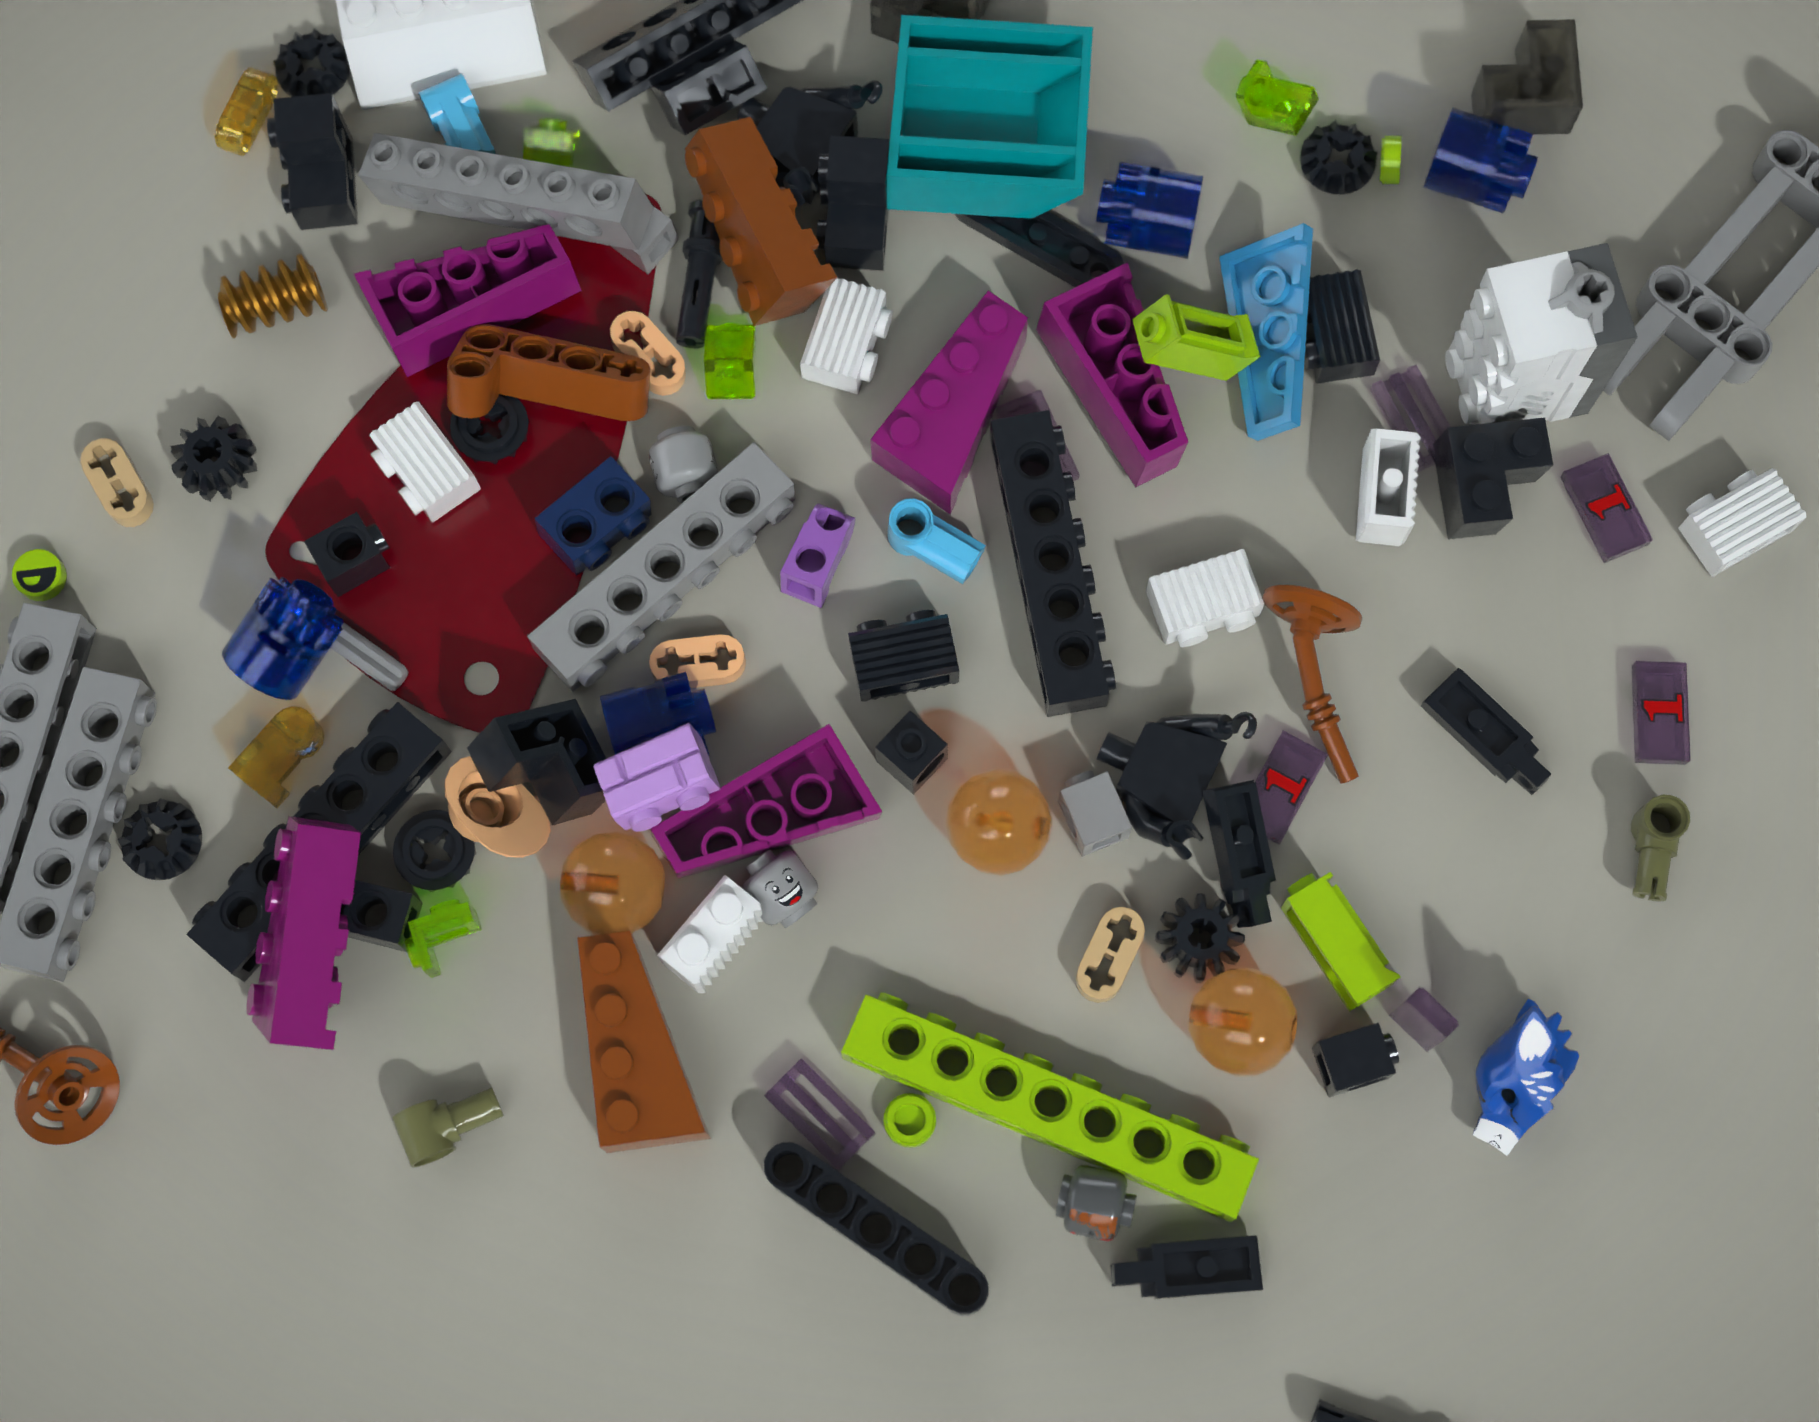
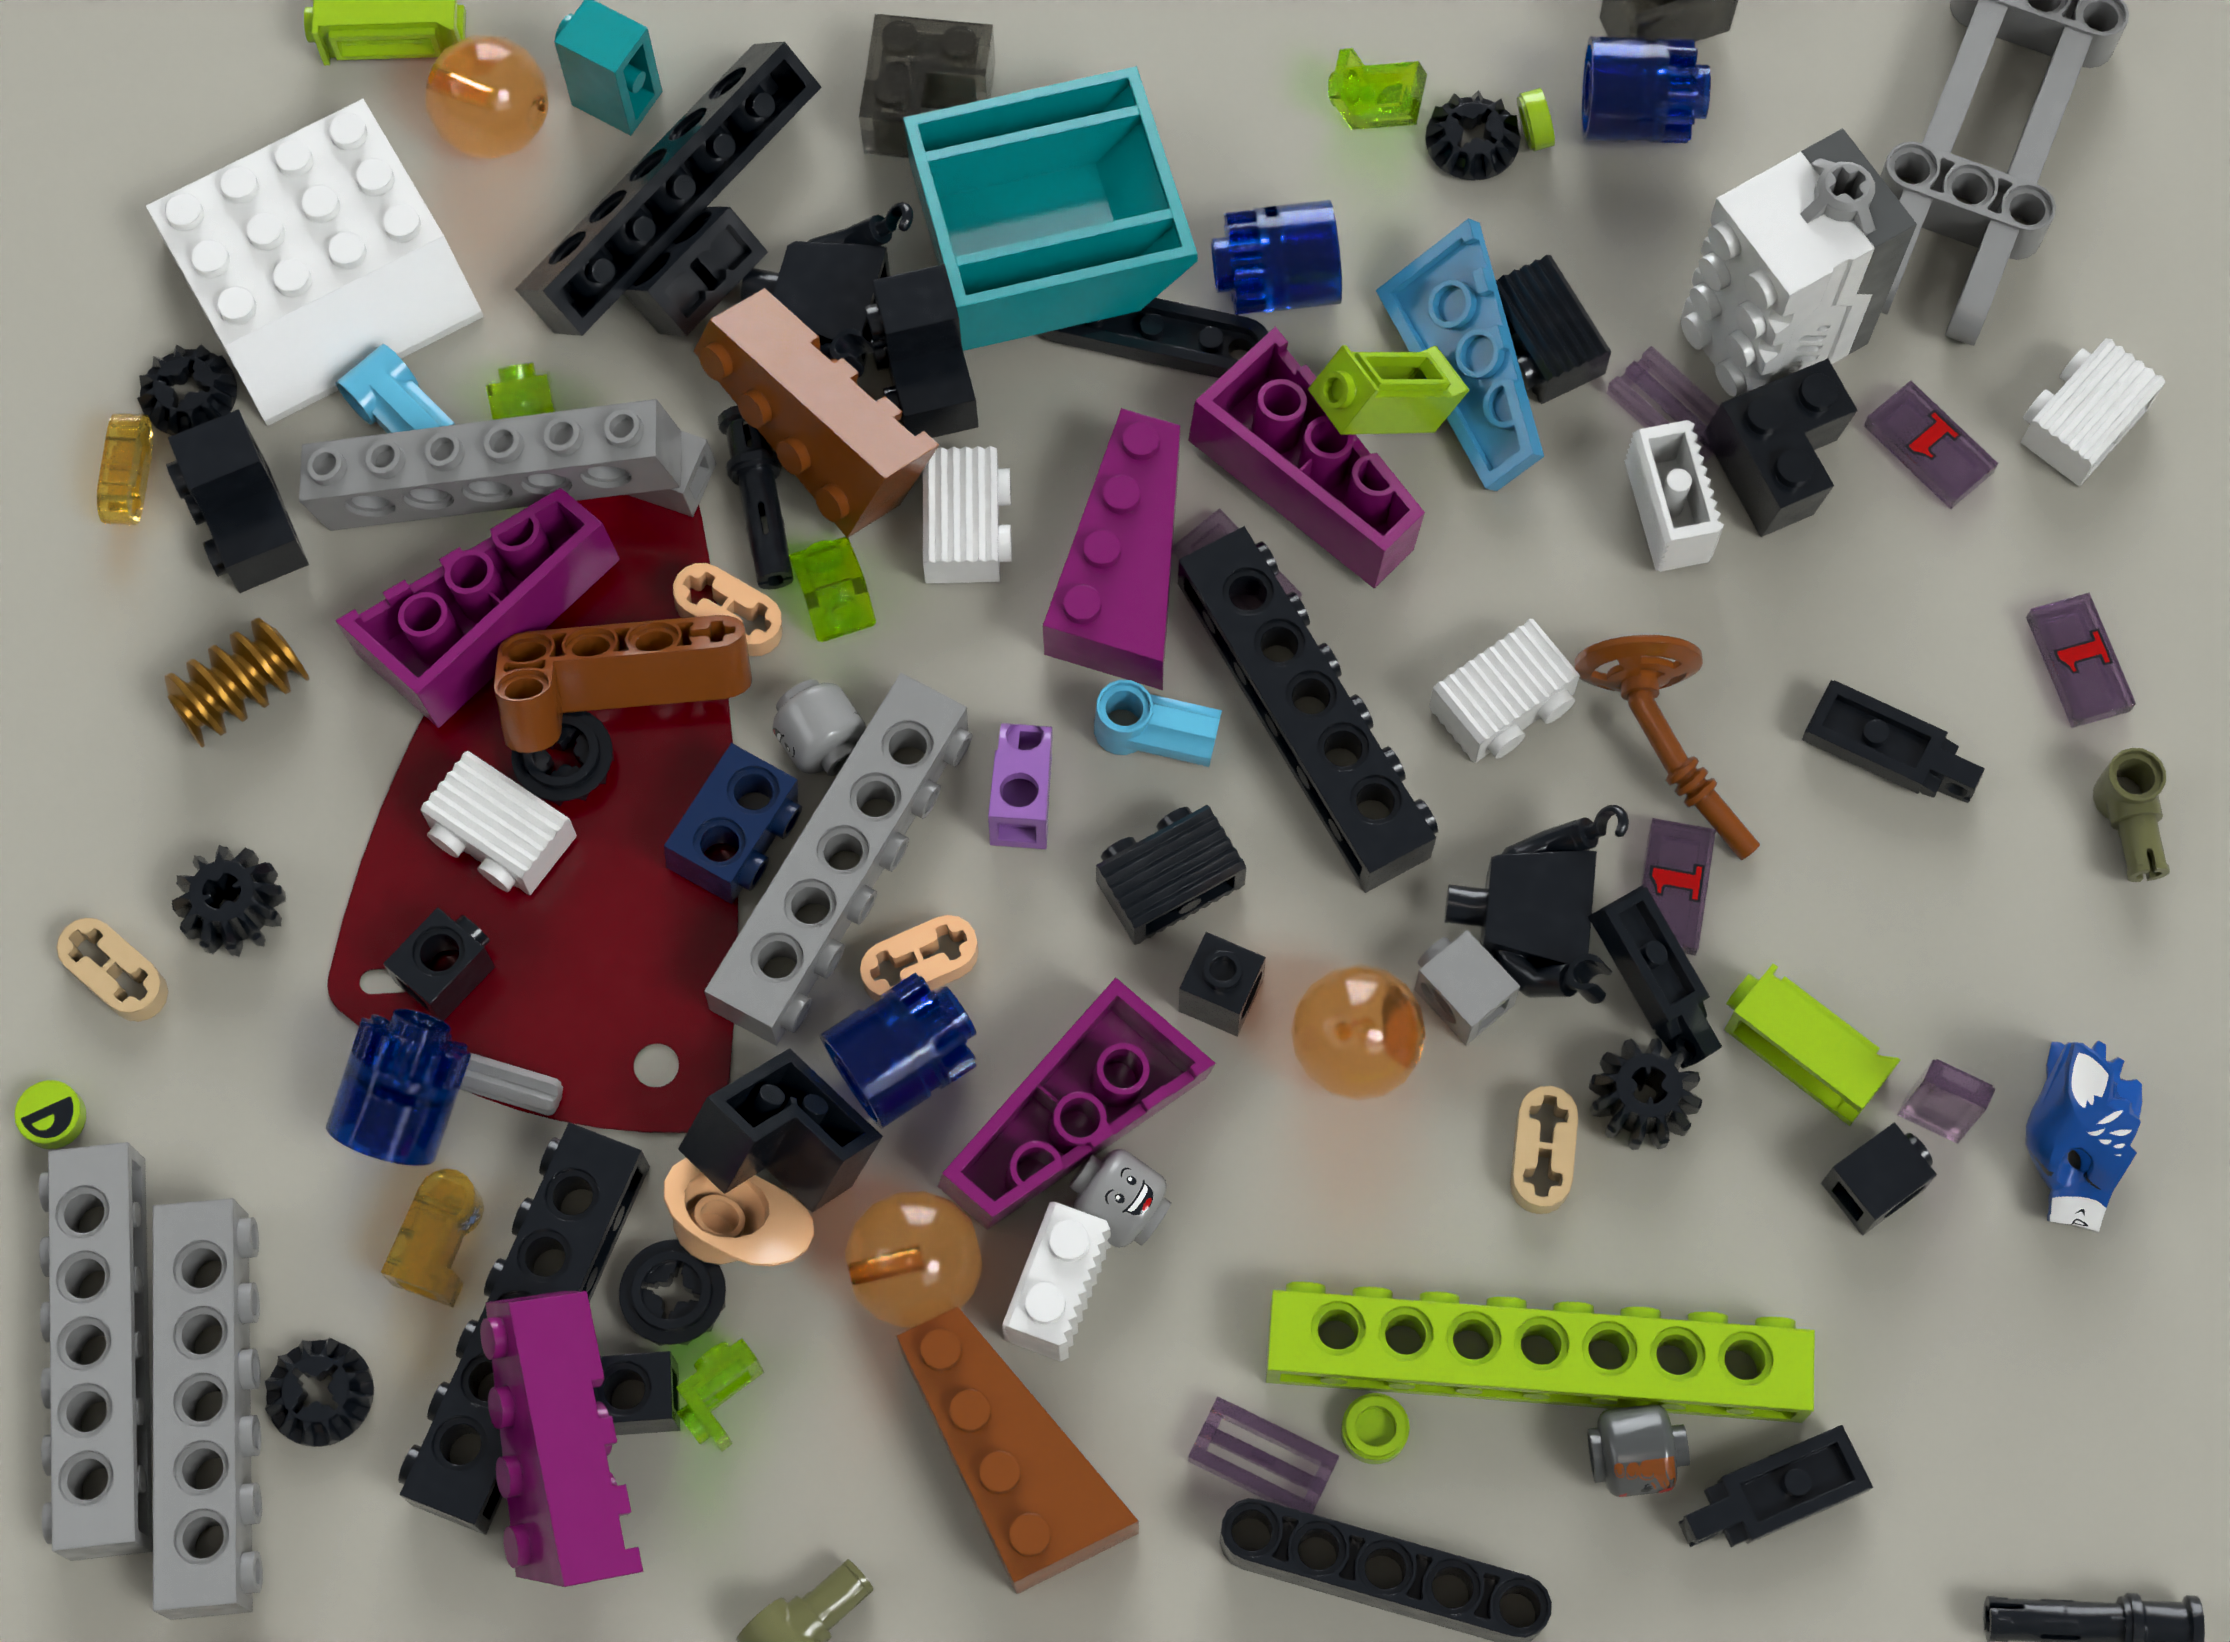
camera: 20 degrees left, 5 degrees down
(657, 778) = (932, 1108): lavender brick -> none
(1243, 1022) = (1735, 1174): clear orange piece -> none

